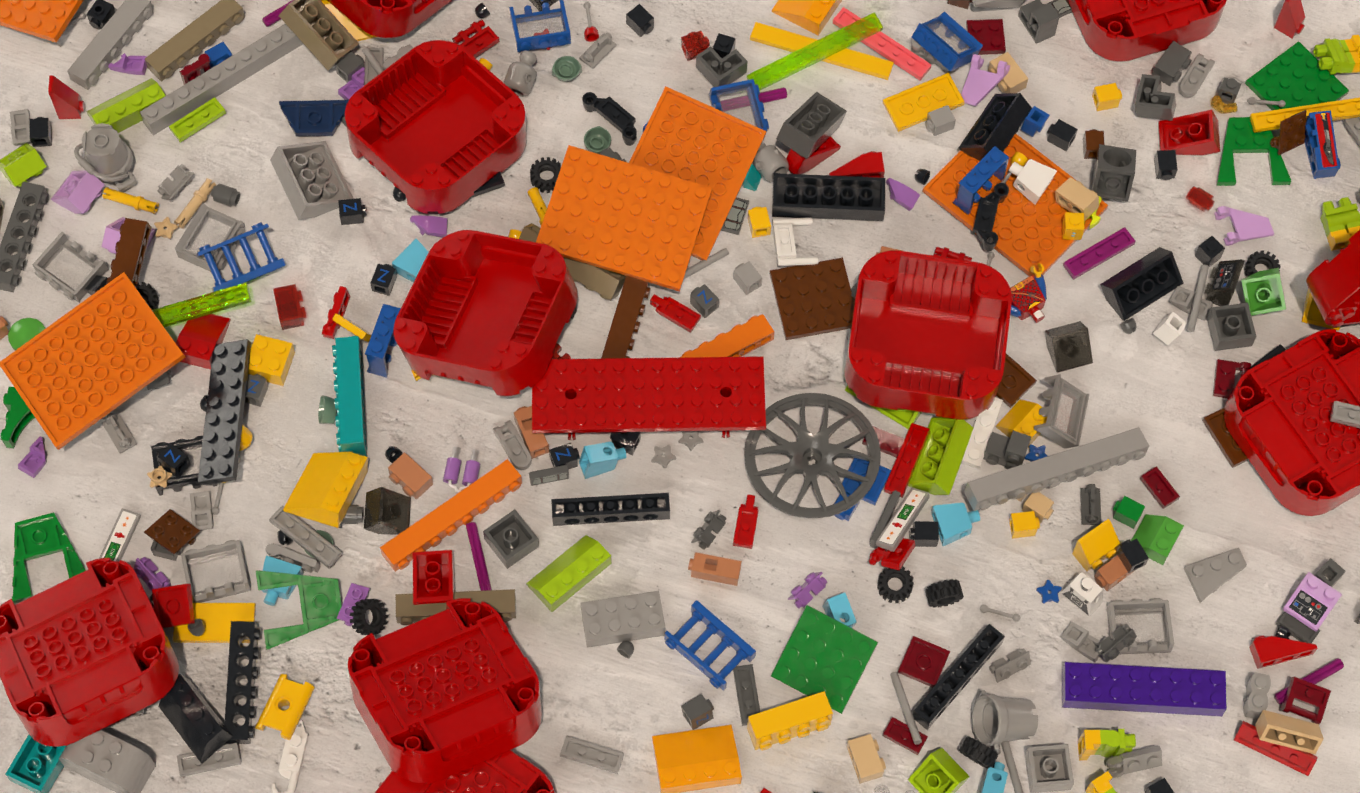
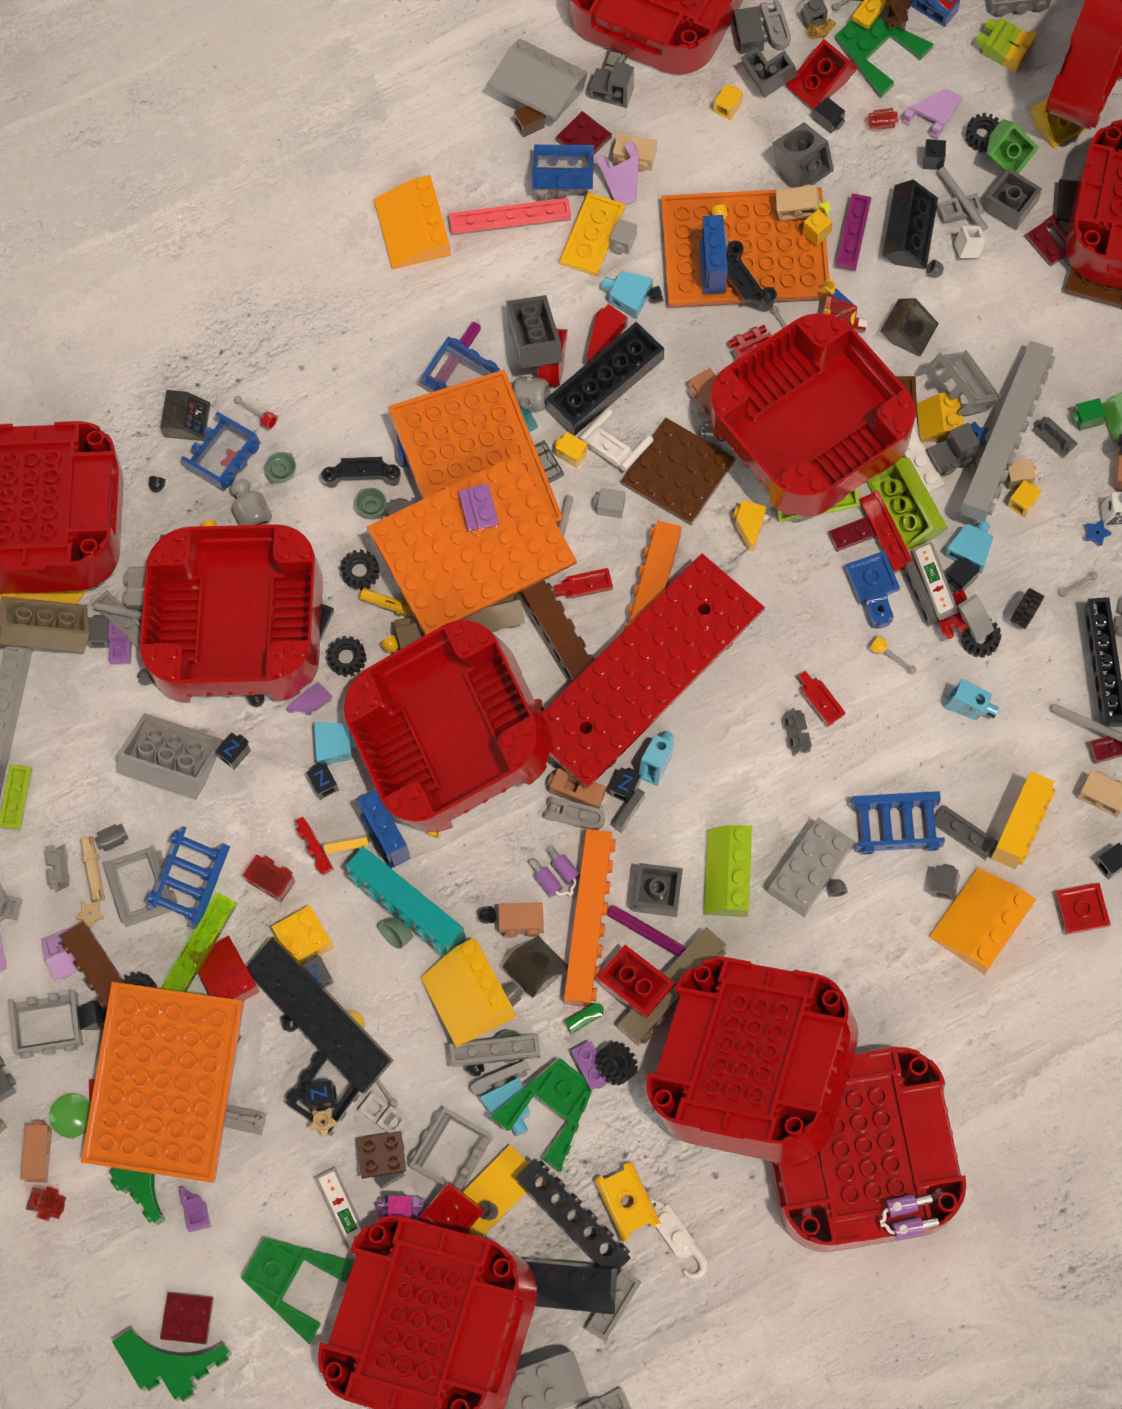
camera: 40 degrees left, 5 degrees up
(138, 203) = (34, 918): yellow pin -> none
(145, 571) = (400, 1206): none -> dark pink brick
(314, 116) = (113, 702): dark blue wing -> none
(382, 573) = (584, 1017): none -> green bar
(478, 43) = (183, 513): red plate -> none
(481, 209) = (346, 644): none -> black tyre
(592, 754) = (902, 996): light grey plate -> none
(598, 50) = (288, 428): light grey hinge -> none
(610, 509) = (708, 790): black brick -> none
(628, 440) = (663, 723): black brick -> none
(640, 20) = (297, 372): black brick -> none
(649, 196) = (478, 507): none -> medium lavender plate
(664, 461) = (698, 702): light grey plate -> none
(690, 443) = (709, 678): light grey plate -> none
(694, 44) = (365, 352): clear red brick -> none
(704, 300) = (597, 553): dark grey brick -> none
(715, 568) = (837, 757): nougat brick -> none
(721, 70) = (408, 355): dark grey brick -> none
(724, 45) = (390, 333): black brick -> none
(801, 593) = (920, 695): medium lavender hinge -> none
(816, 51) = (467, 269): clear neon green plate -> none
(816, 448) = (824, 589): dark grey wheel -> none
(822, 526) = (880, 646): none -> hinge
(824, 371) = (749, 522): none -> yellow slope
(824, 658) = (995, 746): green plate -> none
(845, 58) = (468, 265): yellow tile -> none
(898, 564) = (976, 617): none -> light grey slope
(902, 194) = (657, 323): medium lavender slope -> none
(905, 158) = (628, 292): none -> medium azure torso
(924, 662) = (1066, 676): dark red plate -> none
(996, 125) = (674, 202): black slope -> none
(1032, 179) = (748, 218): white torso -> none
(1034, 121) = (697, 170): blue brick -> none
(1061, 134) = (727, 163): black brick -> none
(1091, 143) = (758, 148): reddish brown brick -> none
(1096, 546) = (1096, 463): yellow slope -> none
(1159, 487) = (1090, 373): dark red plate -> none
(1224, 281) = (971, 167): clear smoke slope -> none

